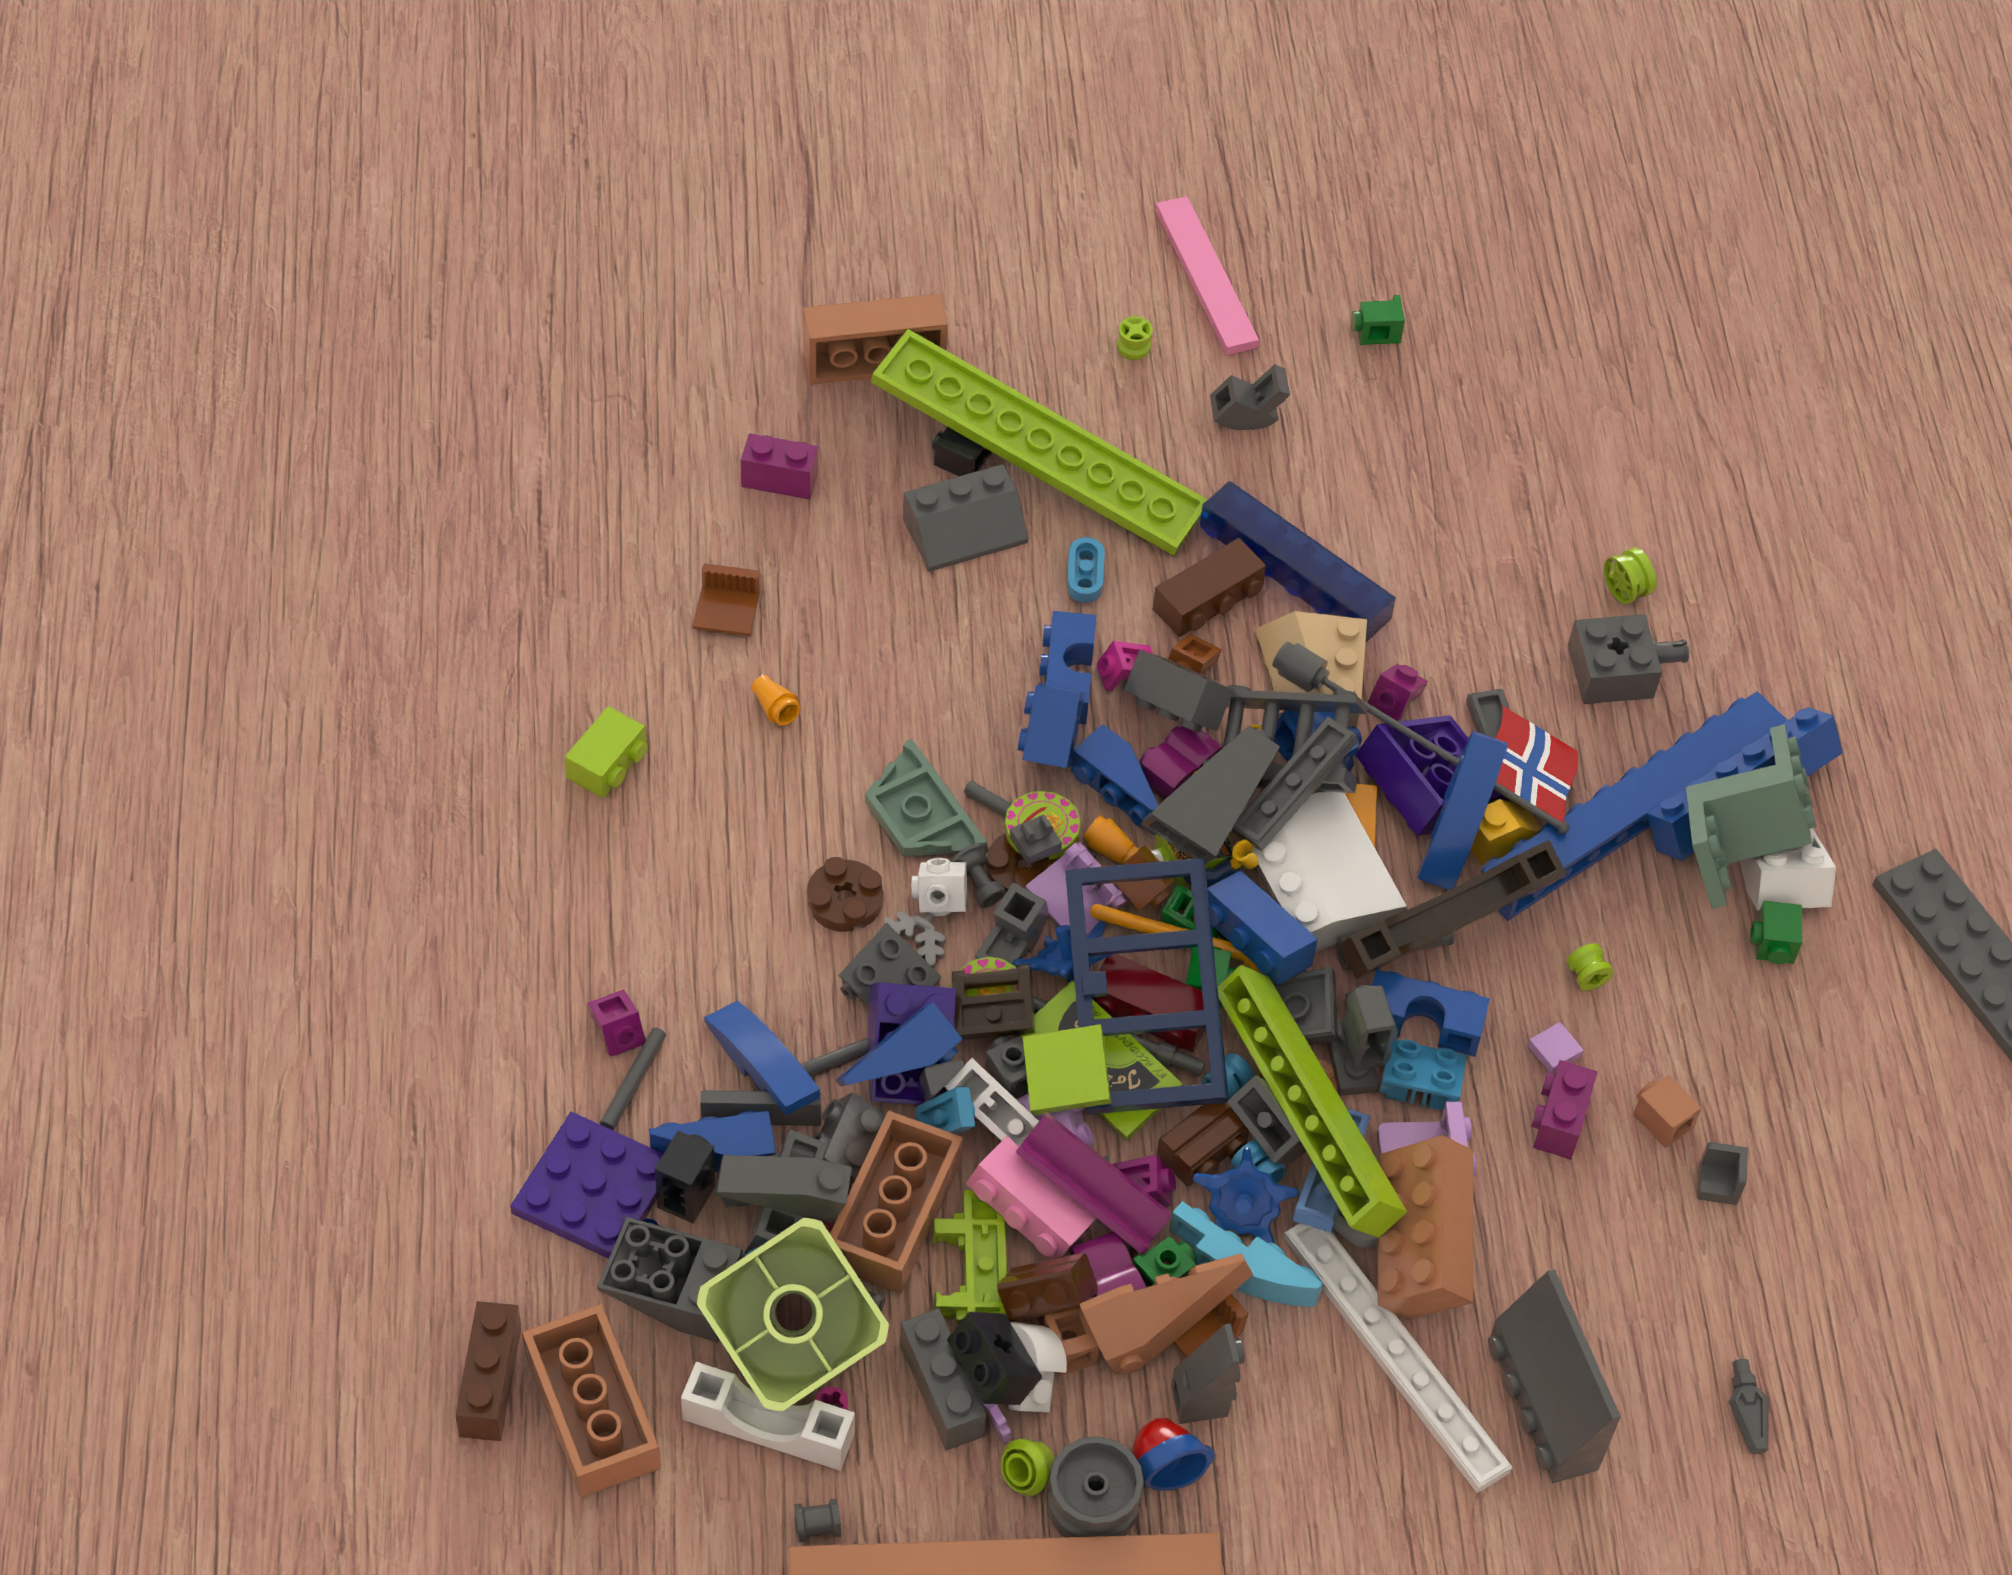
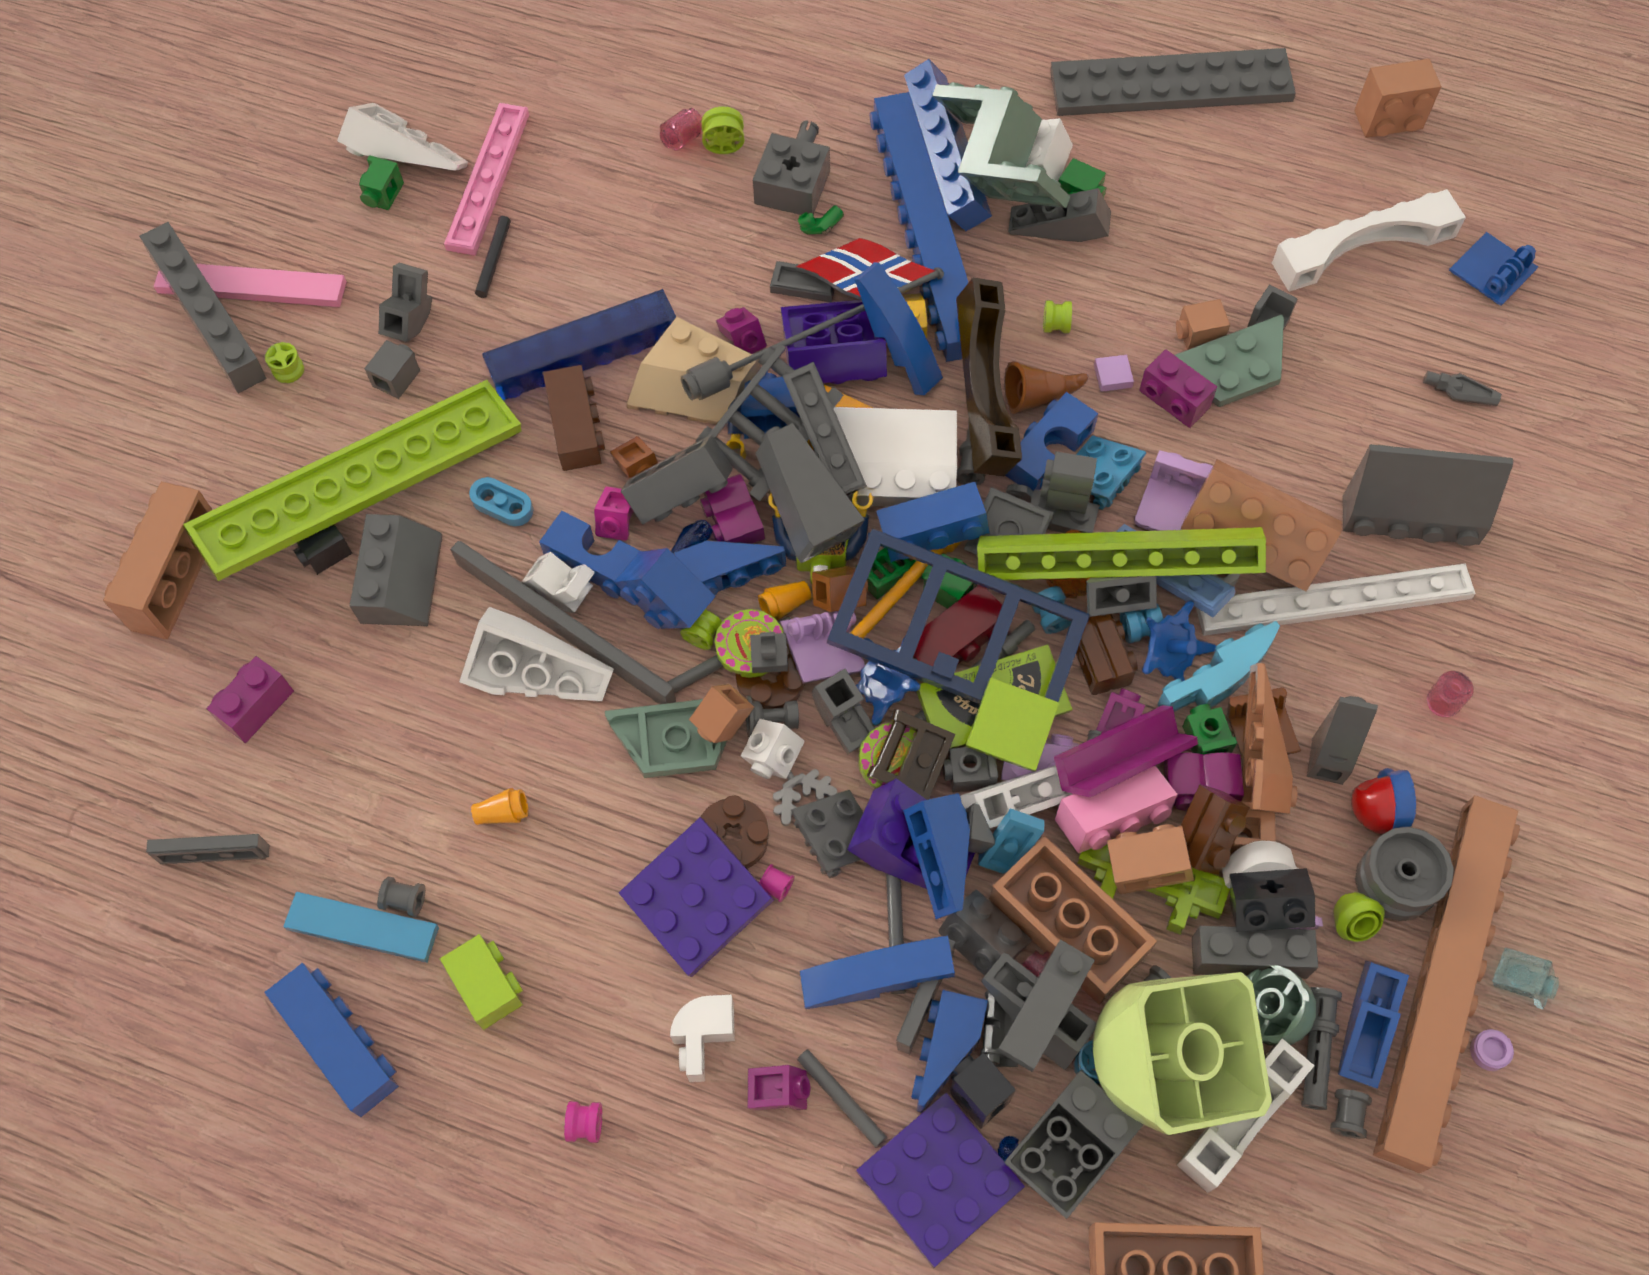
camera: 60 degrees left, 10 degrees up
(503, 665) = (332, 1039): none -> blue brick
(516, 880) = (583, 1122): none -> dark pink wheel
(614, 645) = (361, 927): none -> dark azure tile
(627, 501) = (208, 849): none -> dark grey tile
(642, 932) = (698, 1023): none -> white brick
(654, 660) = (401, 896): none -> dark grey bush
(727, 599) = (371, 806): dark orange piece -> none
(766, 884) = (696, 897): none -> dark purple plate
(812, 945) = (776, 882): none -> dark pink axle
(891, 1412) = (1283, 1005): none -> sand green cylinder
(892, 1469) = (1320, 1048): none -> dark grey pin
(923, 1514) = (1372, 1024): none -> blue slope
(930, 651) = (525, 659): none -> white wedge
(950, 822) = (721, 713): none -> nougat brick
(983, 671) = (563, 624): none -> dark grey tile
(985, 1239) = (1150, 859): none -> nougat brick
(1022, 648) = (558, 582): none -> white brick
(1040, 779) = (702, 630): none -> lime wheel
(1138, 738) = (692, 535): none -> clear blue arm
(1150, 247) = (203, 307): none -> dark grey brick
(1178, 422) = (392, 369): none -> dark grey brick
(1332, 1484) = (1450, 693): none -> clear pink brick
(1357, 449) = (492, 257): none -> black bar
(1439, 301) = (382, 134): none -> white wedge
(1448, 406) = (486, 179): none -> bright pink tile
(1485, 972) = (1034, 387): none -> dark orange hat
(1573, 711) = (812, 226): none -> green arm
(1610, 539) = (681, 129): none -> clear pink brick
(1638, 1160) = (1241, 360): none -> sand green wing
(1727, 934) = (1082, 220): none -> dark grey slope
(1942, 1397) = (1495, 268): none -> blue hinge
(1958, 1296) = (1420, 221): none -> white arch

